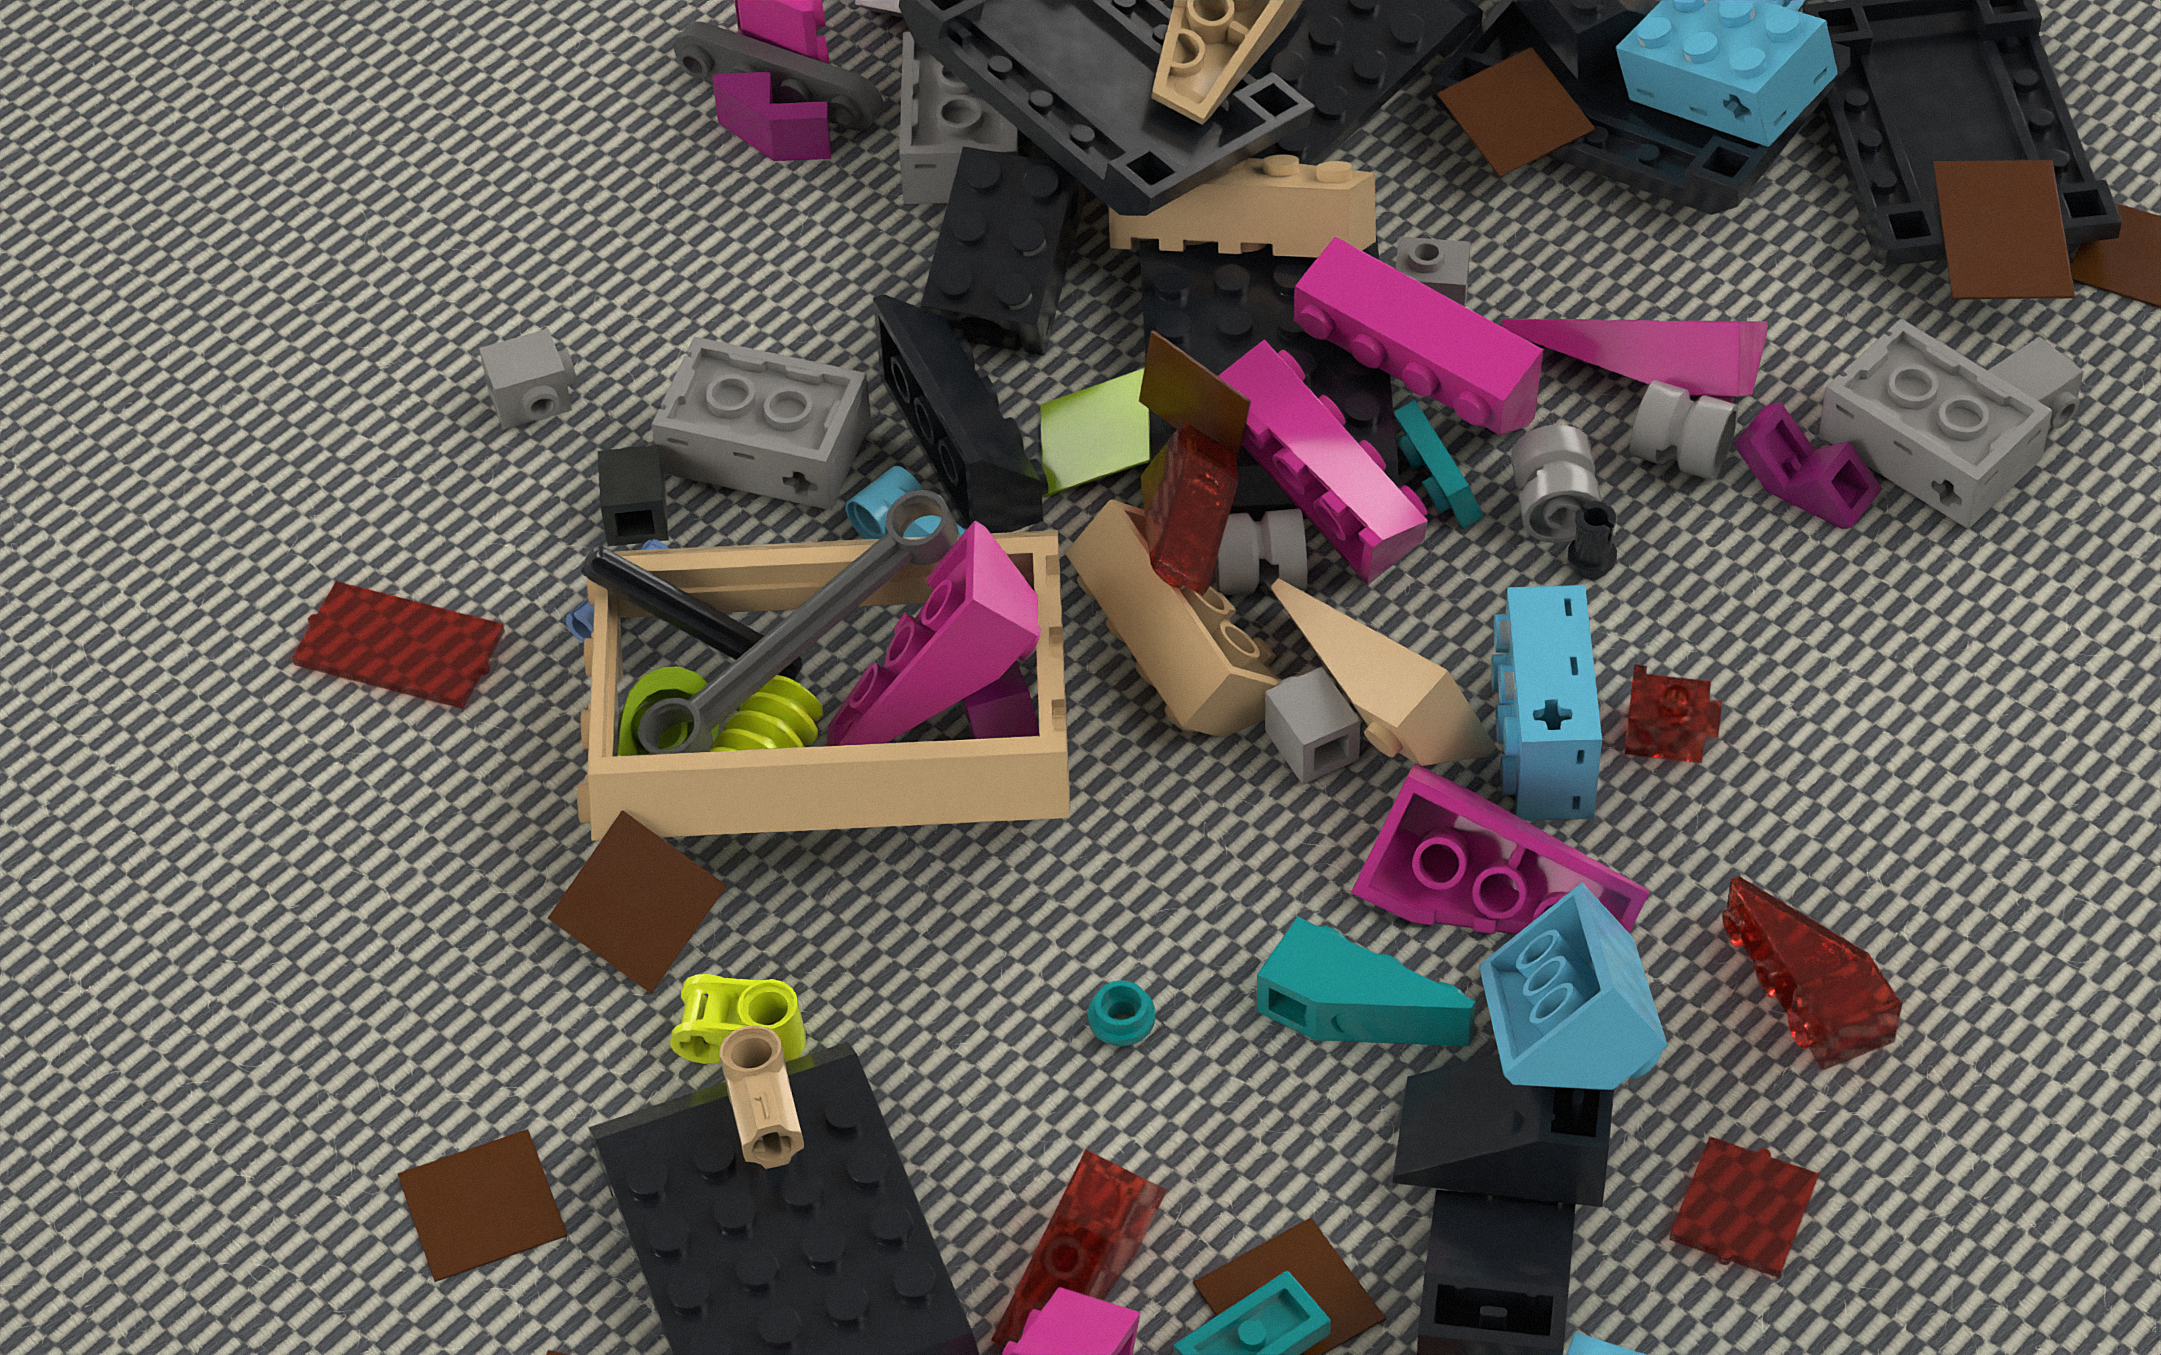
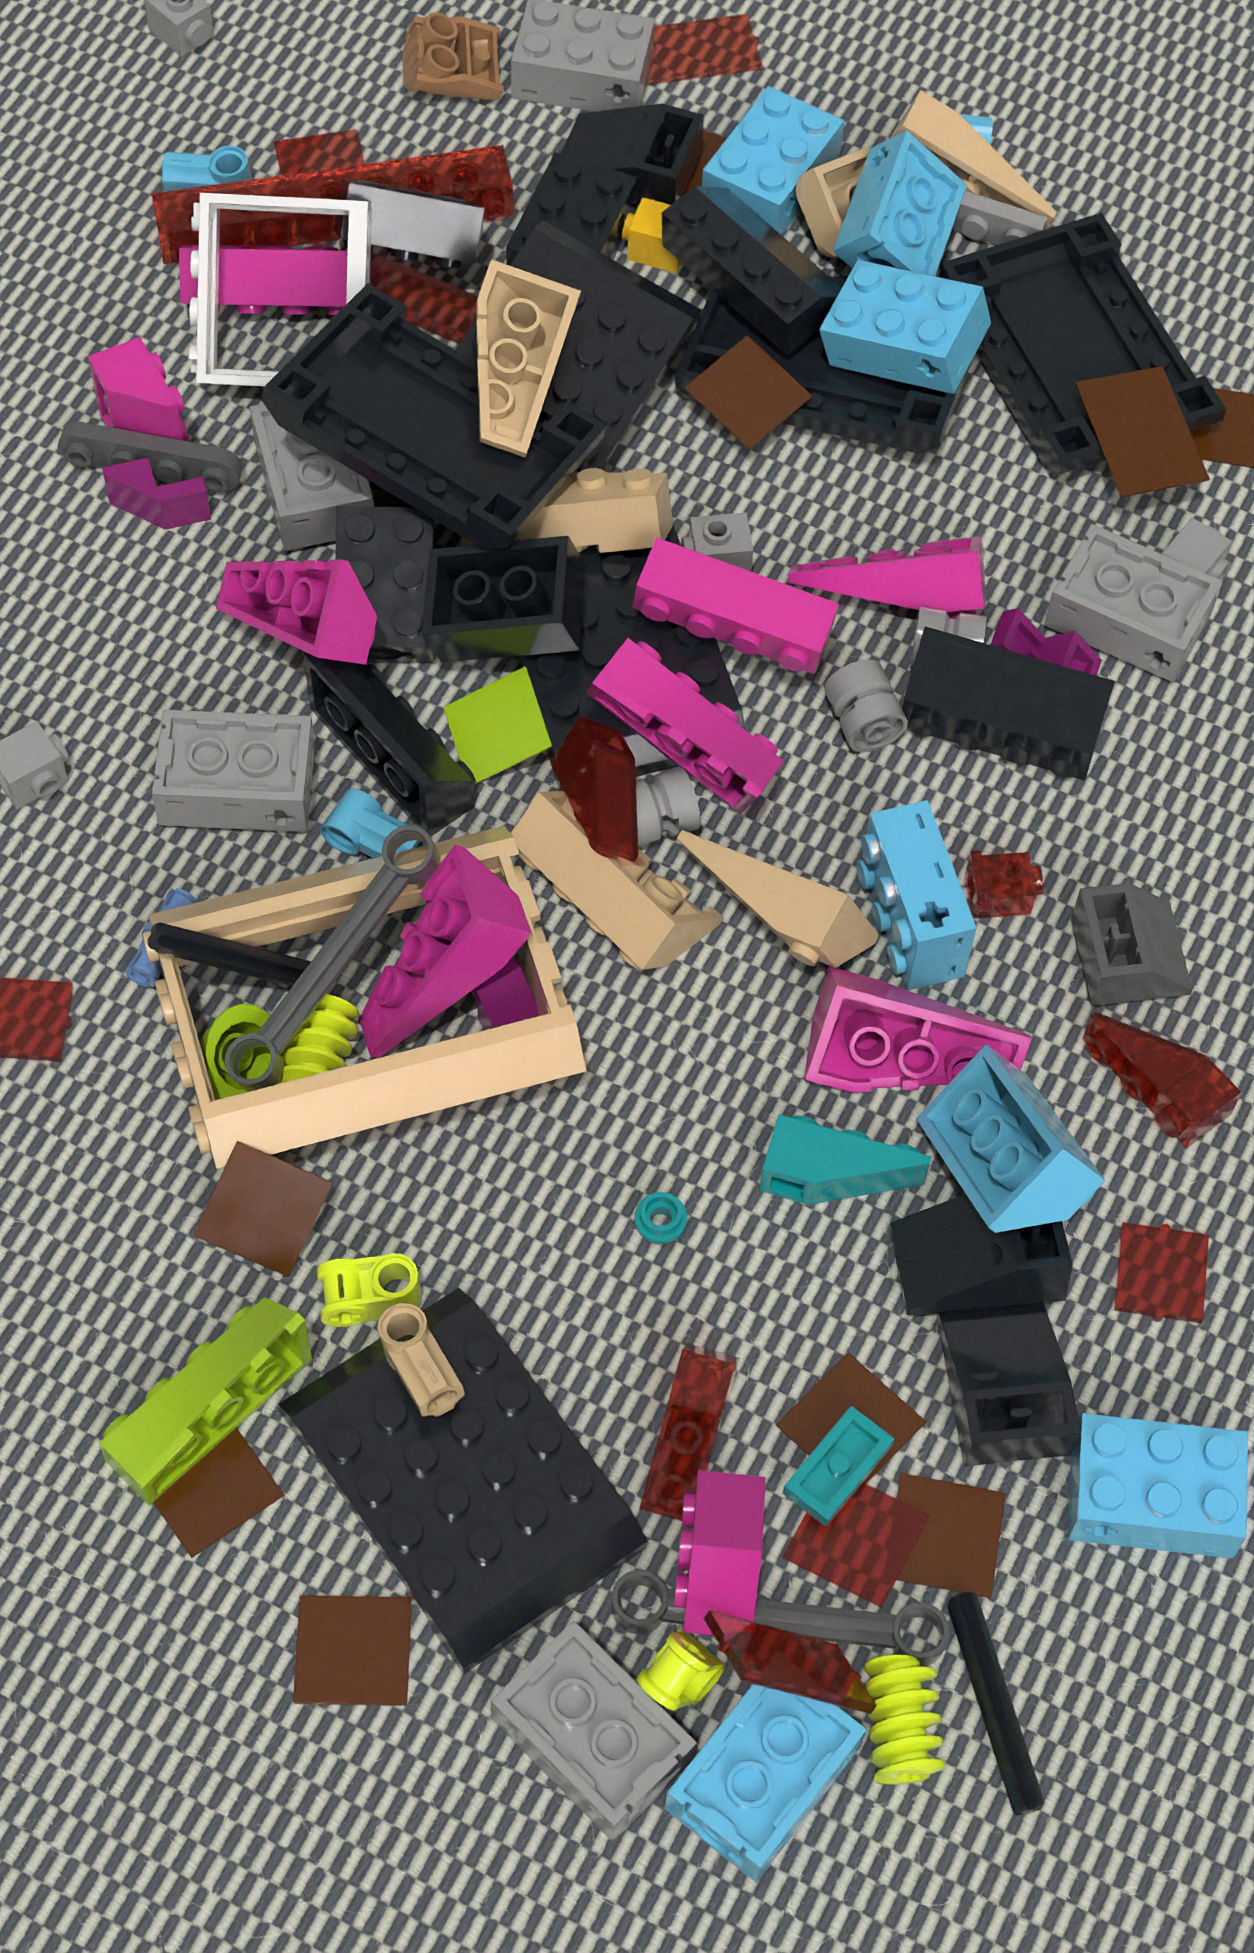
camera: 20 degrees left, 10 degrees up
(507, 1102) = (207, 1398): none -> lime wedge
(632, 495) = (146, 851): pearl dark grey brick -> none
(891, 244) = (303, 604): none -> dark pink wedge
(1122, 276) = (504, 600): none -> black brick
(1187, 391) = (582, 694): reddish brown piece -> none
(1312, 725) = (739, 947): light grey brick -> none
(1445, 482) = (780, 720): teal plate -> none
(1592, 550) = (905, 754): black pin -> none
(1735, 508) = (1006, 703): none -> black slope
(1813, 812) = (1128, 945): none -> dark grey slope

